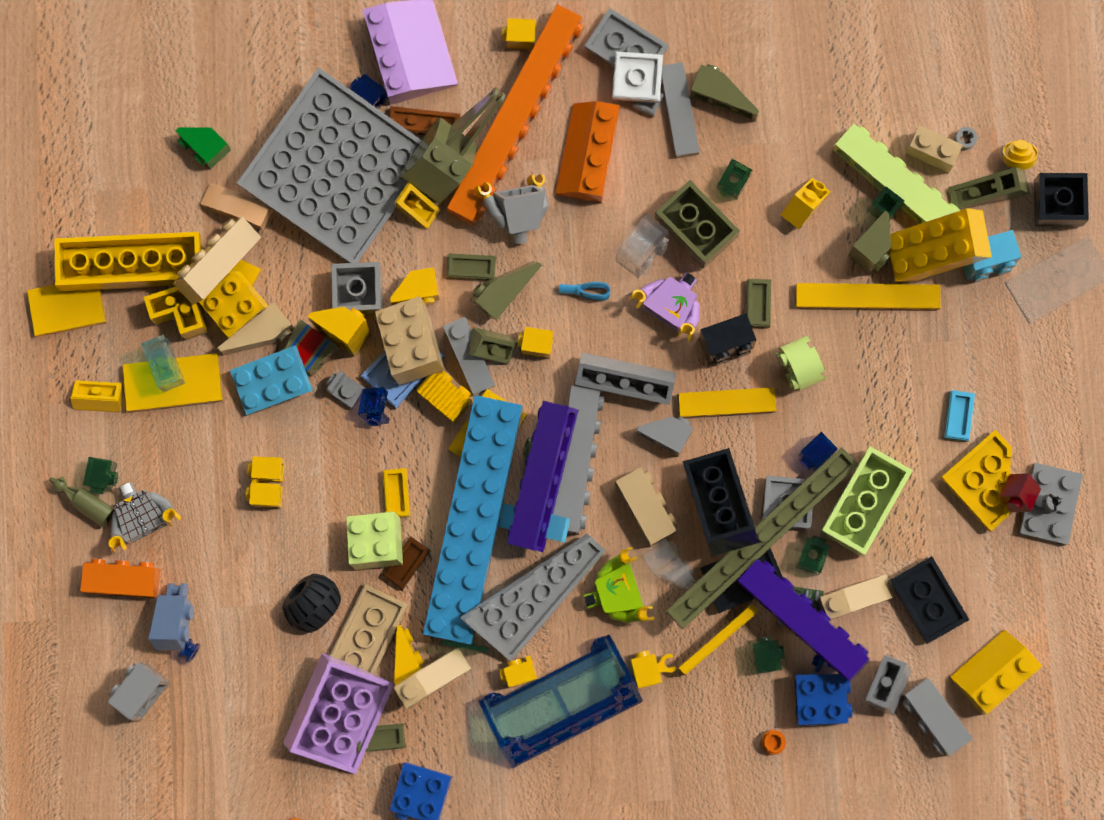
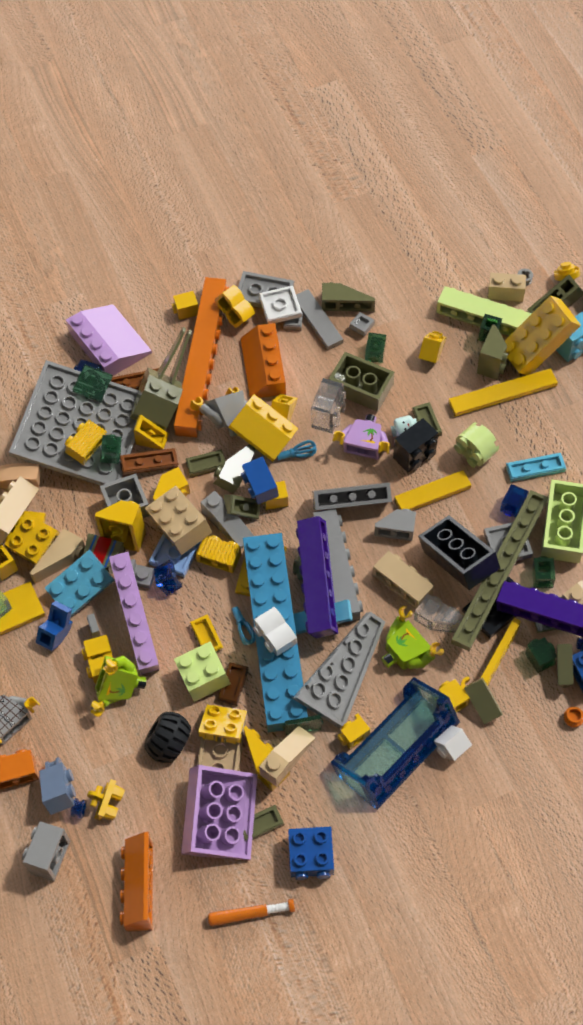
camera: 25 degrees left, 20 degrees down
(225, 761) = (137, 883): none -> orange slope
(226, 425) = (56, 628): none -> blue brick
(228, 644) = (104, 809): none -> yellow hips
(271, 439) = (93, 625): none -> light grey tile
(272, 519) = (115, 683): none -> lime torso
(320, 443) = (134, 613): none -> lavender brick
(332, 198) = (85, 441): none -> yellow brick
(360, 216) = (110, 449): none -> clear green brick
(367, 116) = (92, 383): none -> clear green piece
(377, 610) = (222, 723): none -> yellow hinge
(403, 242) = (148, 461): none -> dark orange tile
(441, 489) = (241, 621): none -> dark azure piece
(468, 531) = (275, 631): none -> white brick
(521, 324) = (260, 480): none -> blue brick
(551, 252) = (263, 427): none -> yellow slope
(579, 61) = (234, 306): none -> yellow brick
(587, 227) = (284, 405): none -> yellow slope
(622, 726) = (452, 743): none -> white brick
(677, 690) = (483, 701): none -> olive tile
(725, 306) = (402, 424): none -> light aqua head
(731, 137) = (362, 324): none -> light grey plate
(785, 682) = (564, 665): none -> olive slope
(864, 413) = (535, 467): none -> medium azure tile

